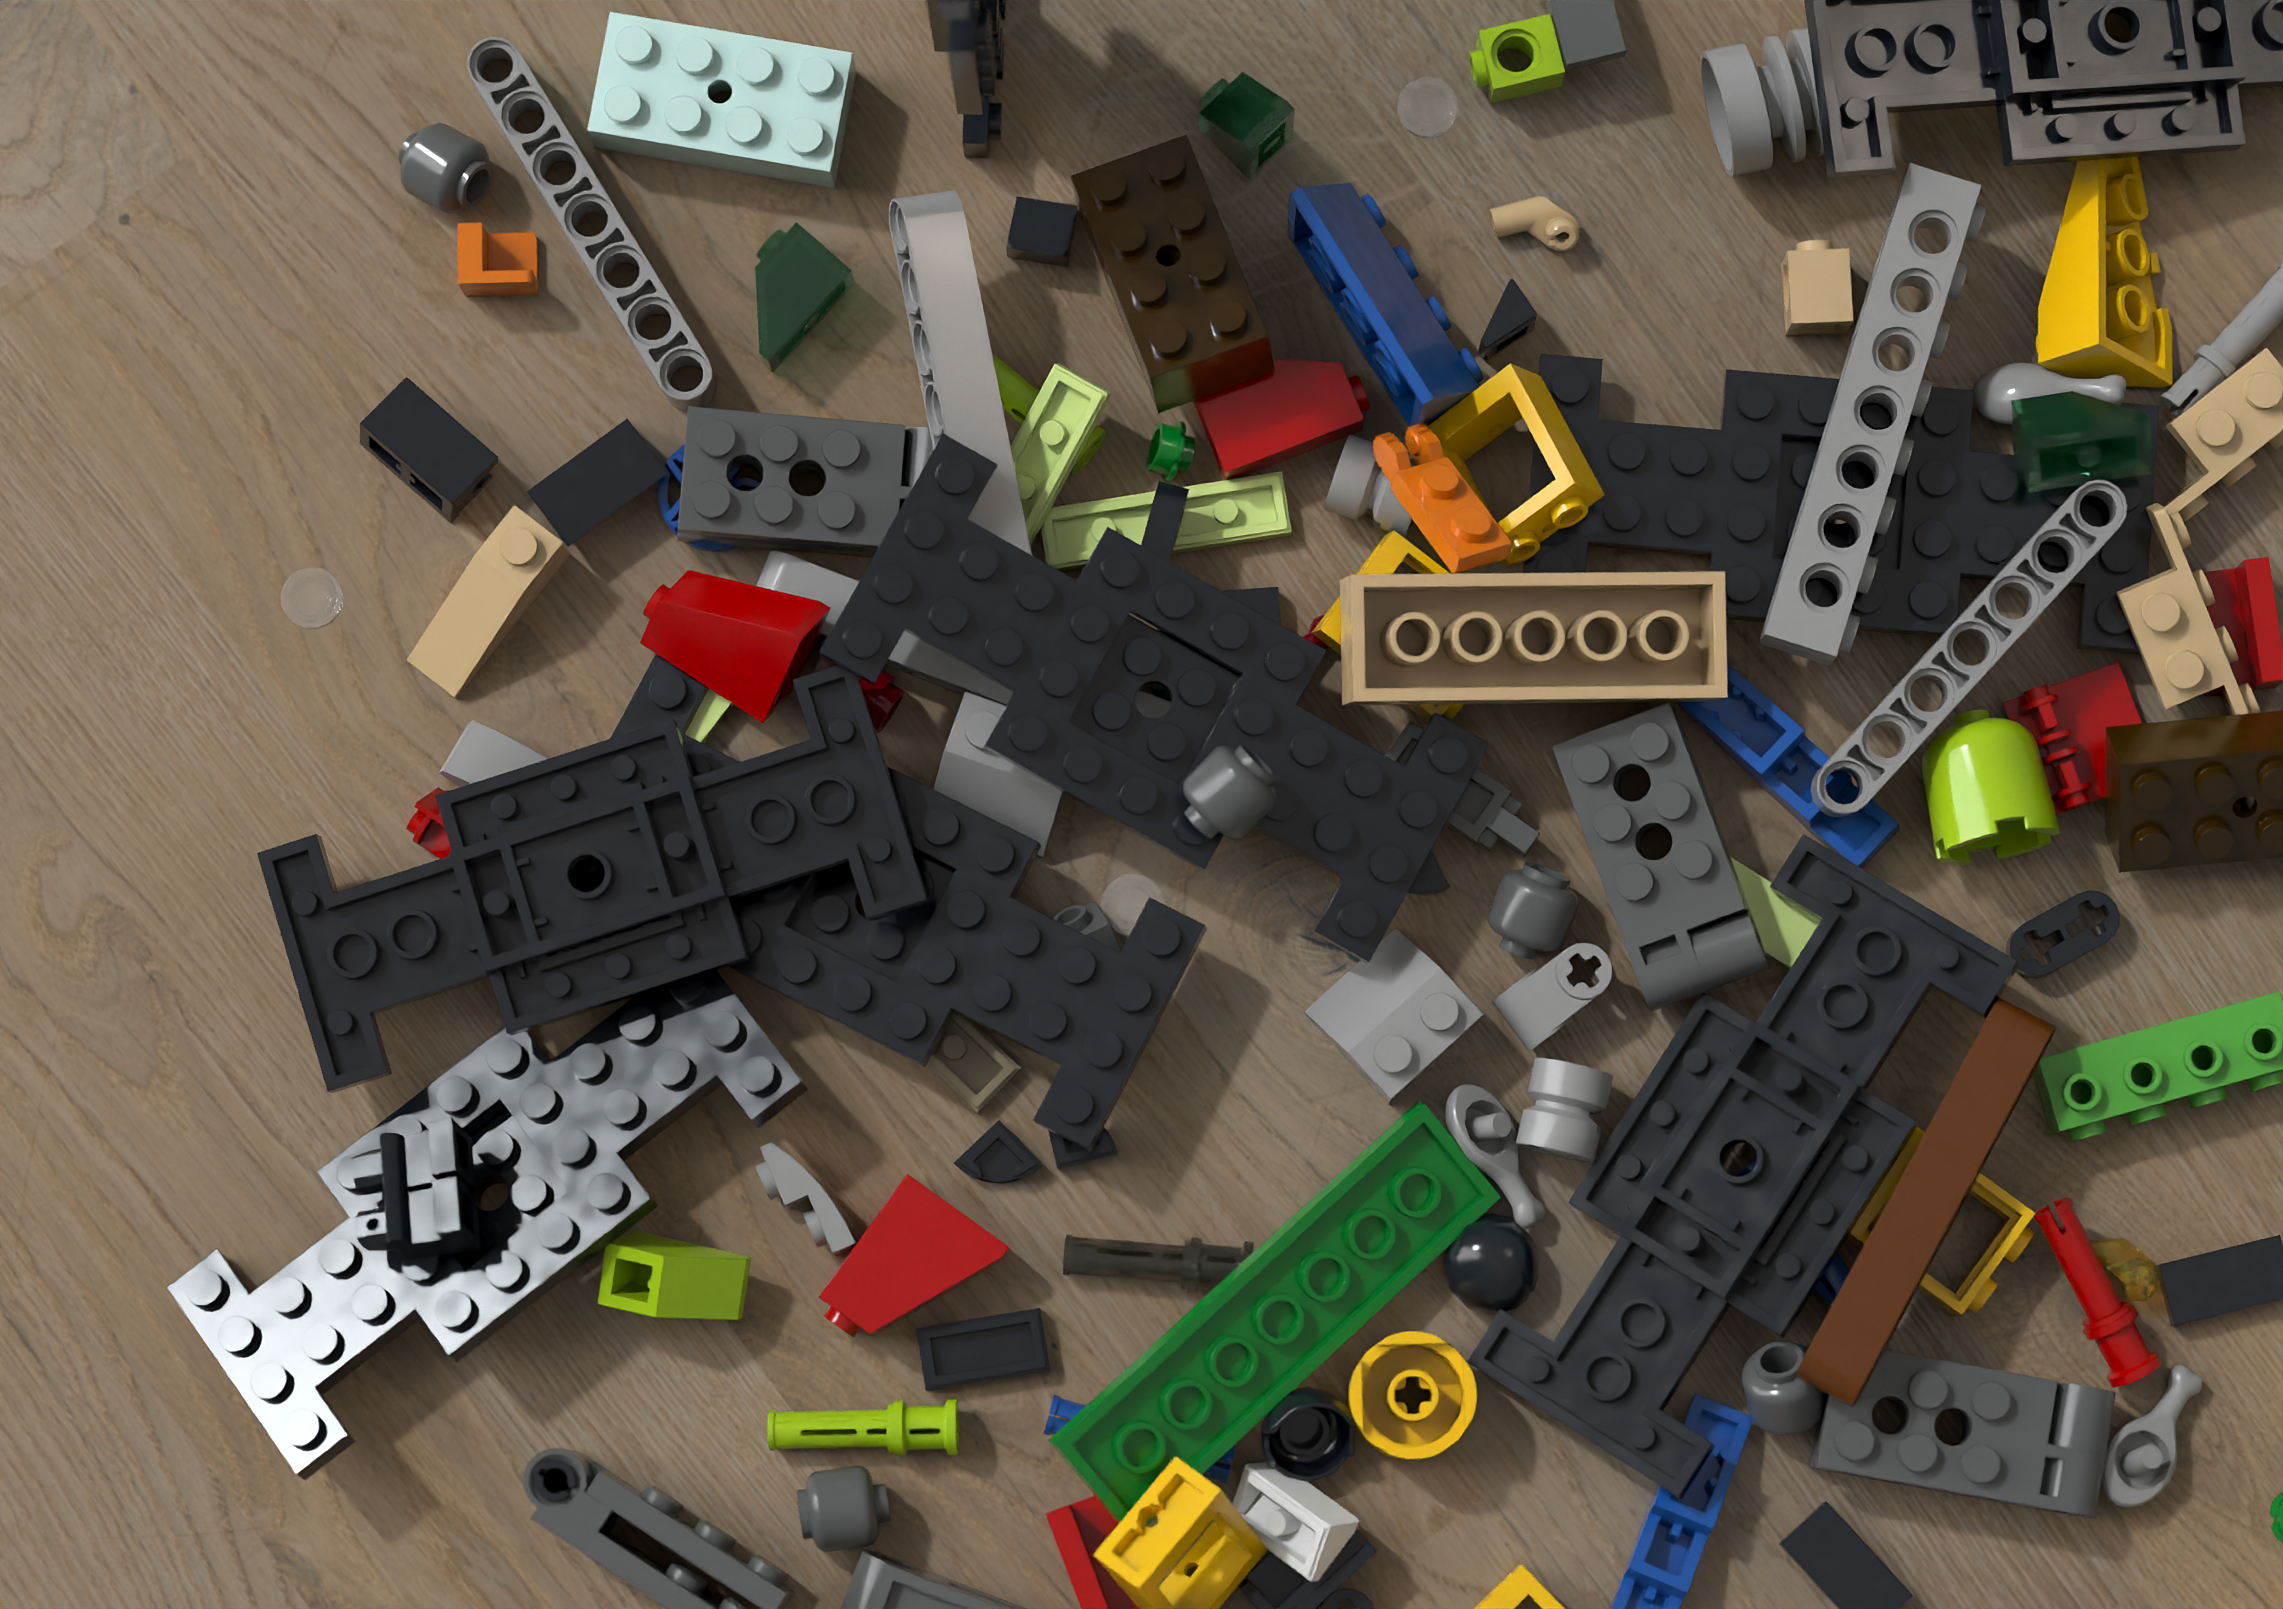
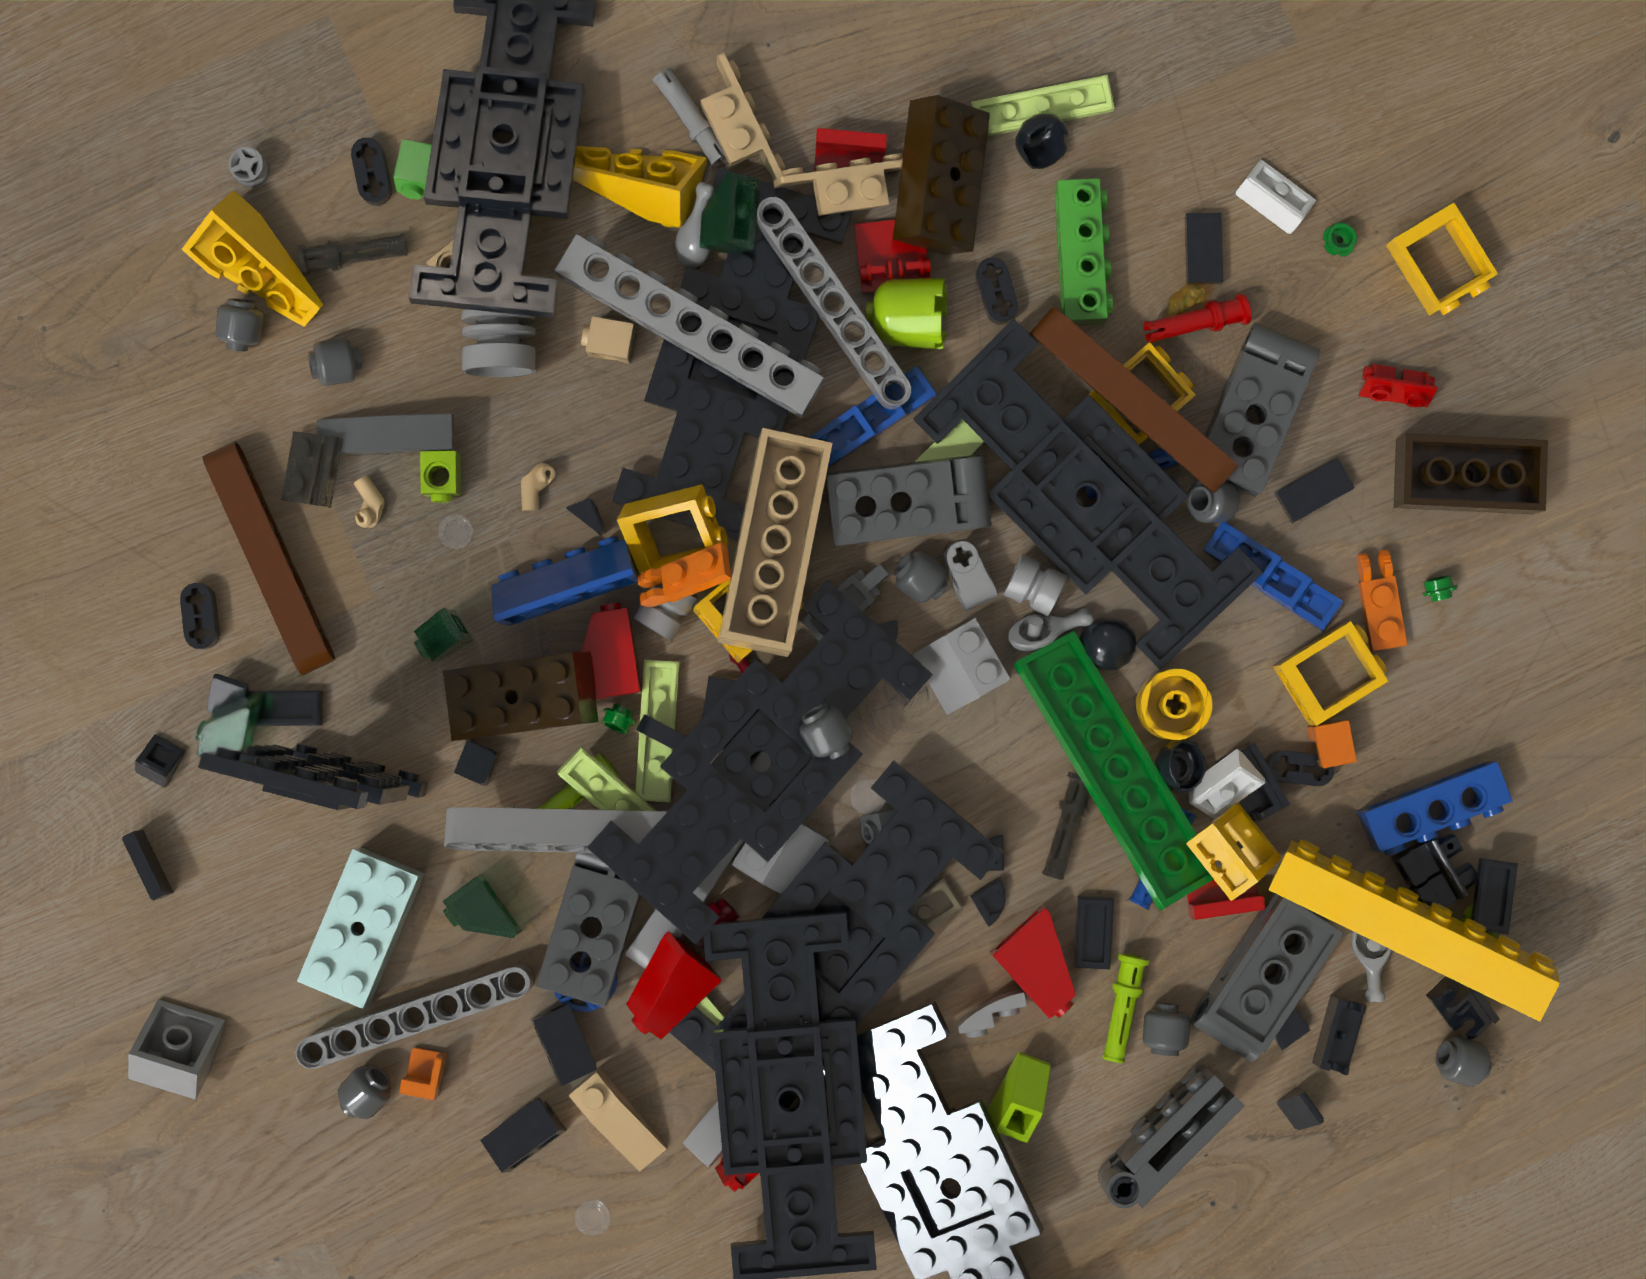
camera: 85 degrees left, 5 degrees up
(425, 1193) = (947, 1230): black hips -> none
(2144, 1451) = (1286, 313): light grey piece -> none

